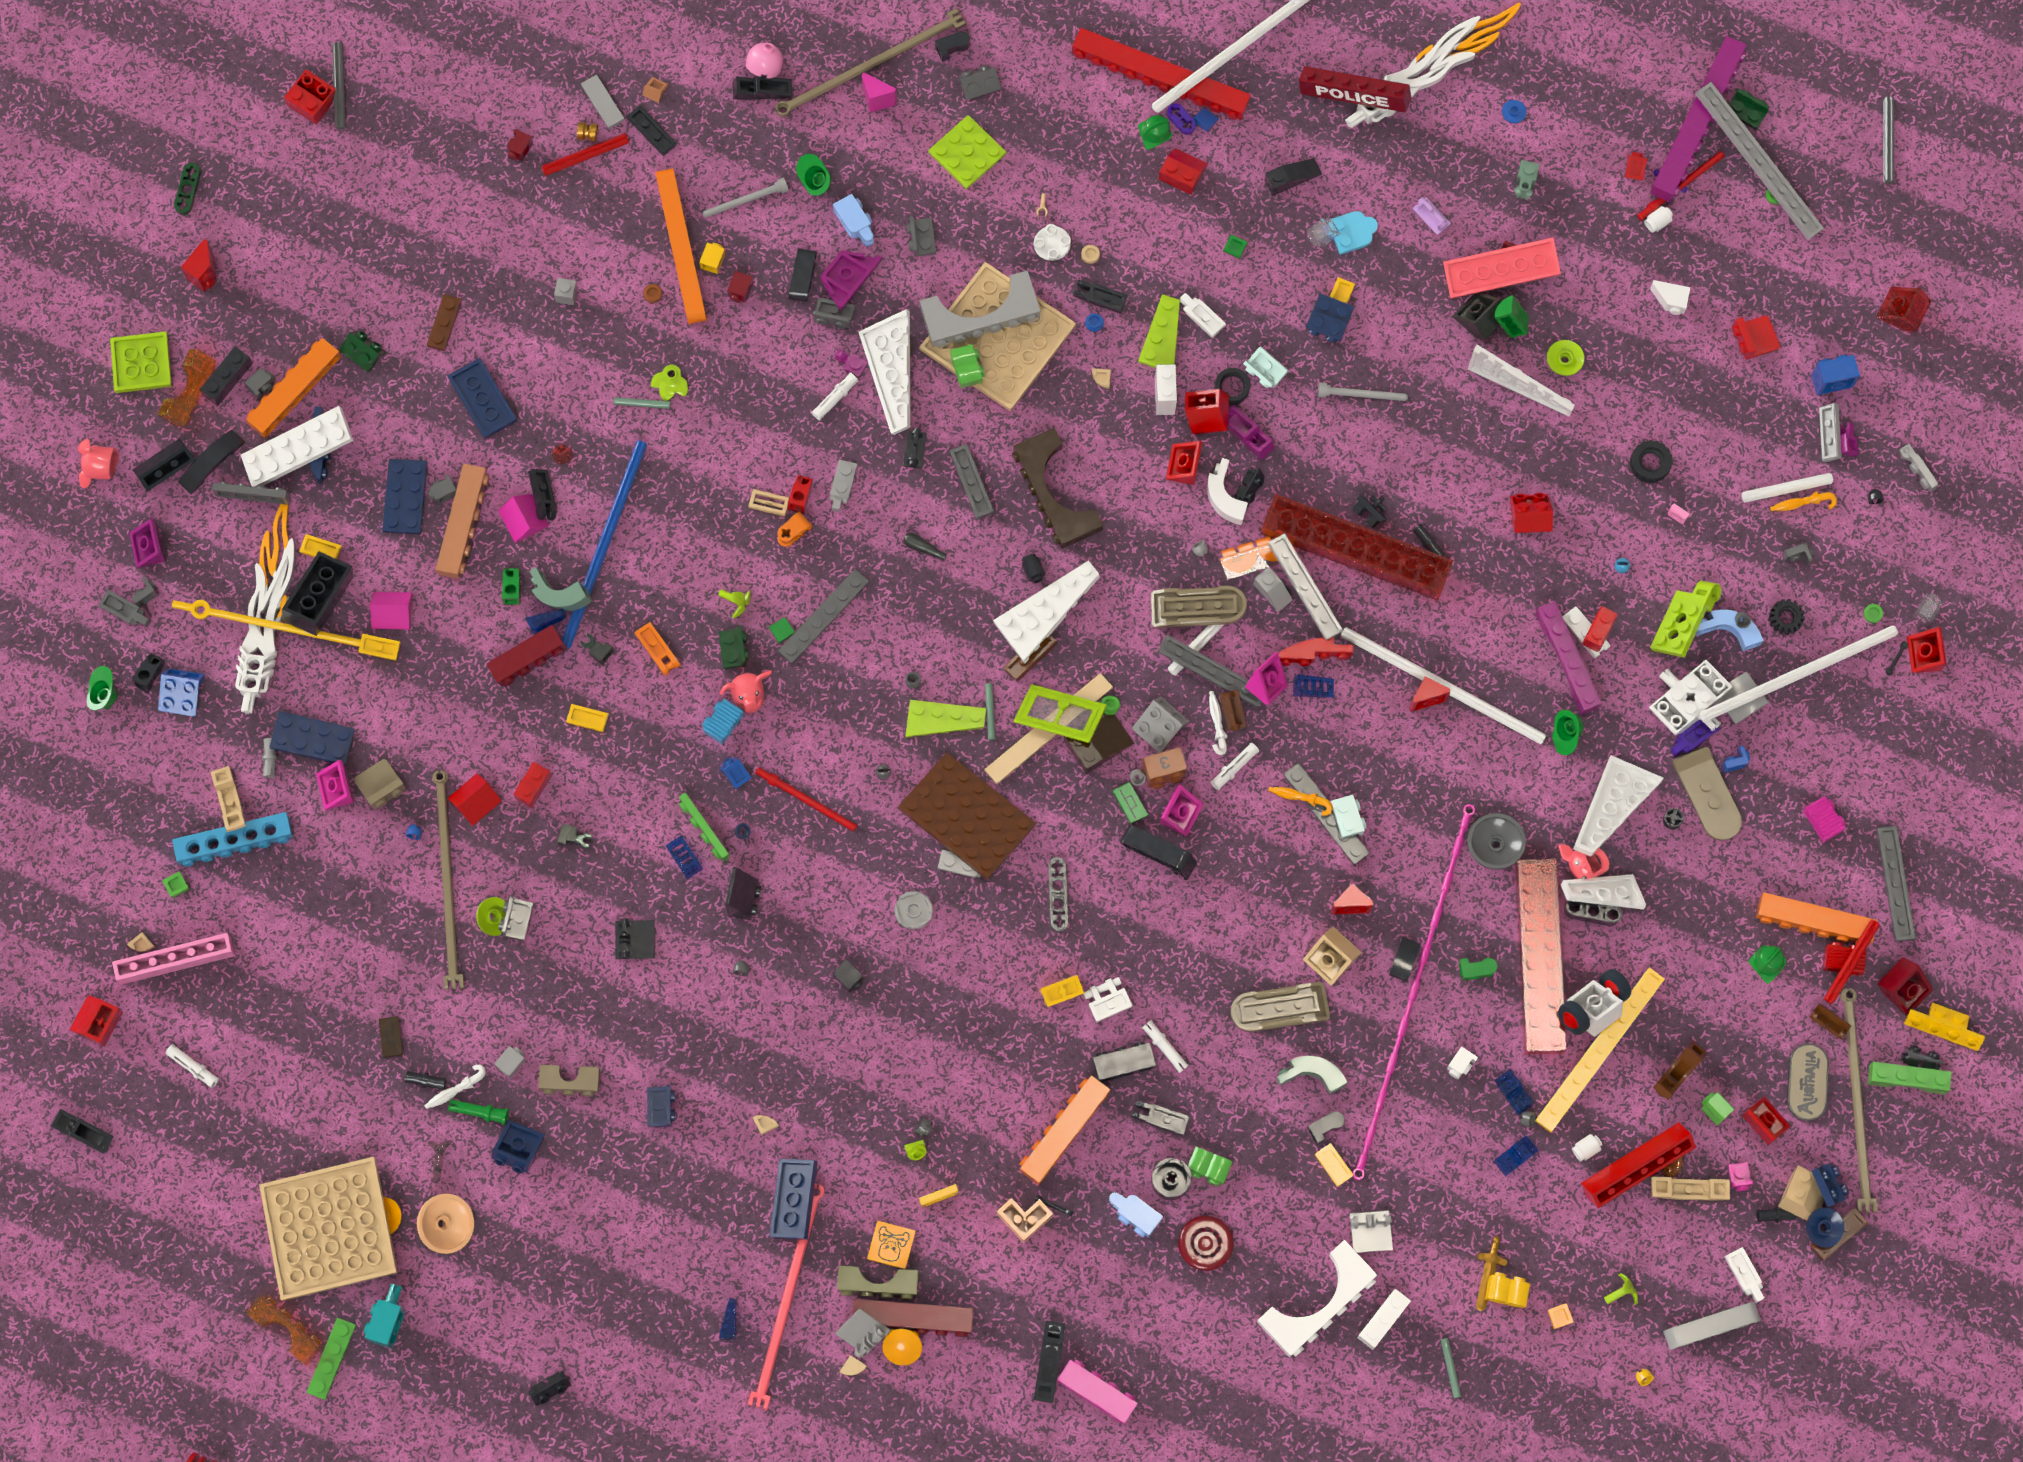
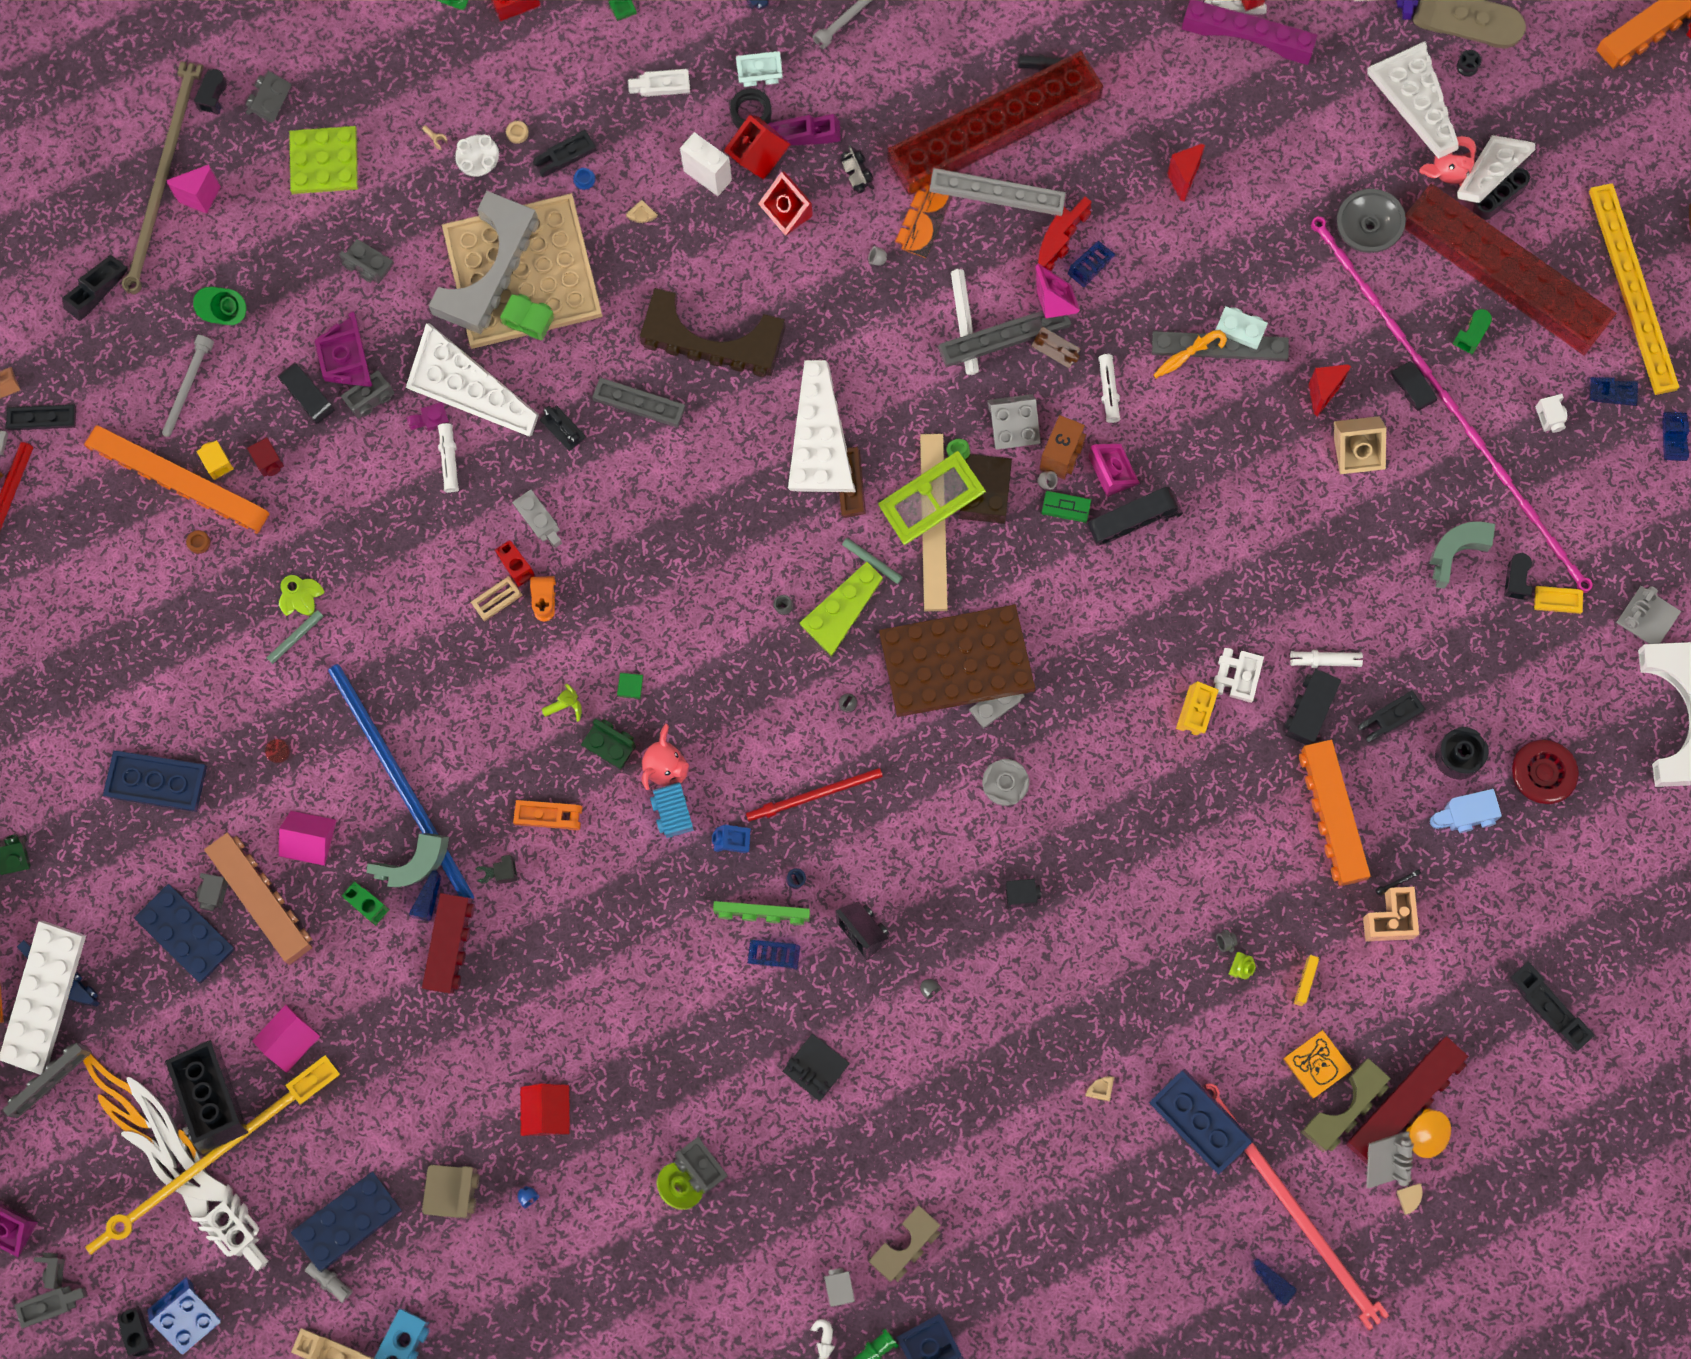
camera: 45 degrees left, 0 degrees up
(312, 545) = (154, 1062): yellow tile -> none
(334, 786) = (413, 1238): dark pink slope -> none
(444, 322) = (47, 757): reddish brown plate -> none
(453, 975) = (705, 1275): dark tan hinge -> none
(532, 784) = (580, 1041): red brick -> none
(542, 494) = (300, 800): black hinge -> none
(565, 291) = (123, 618): light grey brick -> none
(569, 835) = (660, 1046): pearl dark grey piece -> none
(587, 718) = (557, 936): yellow tile -> none
(659, 1106) = (1004, 1176): dark blue bracket -> none
(765, 60) = (69, 260): bright pink cylinder -> none
(823, 616) = (650, 638): dark grey plate -> none
(854, 219) = (296, 305): light blue hinge -> none
(921, 545) = (658, 495): pearl dark grey piece -> none
(1033, 568) = (769, 413): black brick -> none
(1058, 894) = (1102, 637): beam -> none
(1097, 1392) = (1614, 985): brick -> none
(1162, 335) = (651, 134): lime wing -> none
(1197, 606) = (931, 300): dark tan piece -> none
(1209, 1166) = (1475, 709): bright green brick -> none
(1217, 718) = (1048, 367): white piece -> none
(1224, 504) = (847, 202): white arch -> none
(1272, 589) = (971, 224): light grey slope -> none
(1280, 1007) = (1371, 528): piece -> none
(1375, 517) = (979, 85): black hips -> none
(1456, 692) = (1162, 162): white axle -> none
(1528, 1119) = (1650, 398): dark grey hinge -> none
(1566, 731) = (1324, 88): green piece -> none
(1596, 1004) = (1595, 253): brick -> none
(1768, 962) = (1663, 89): green piece -> none

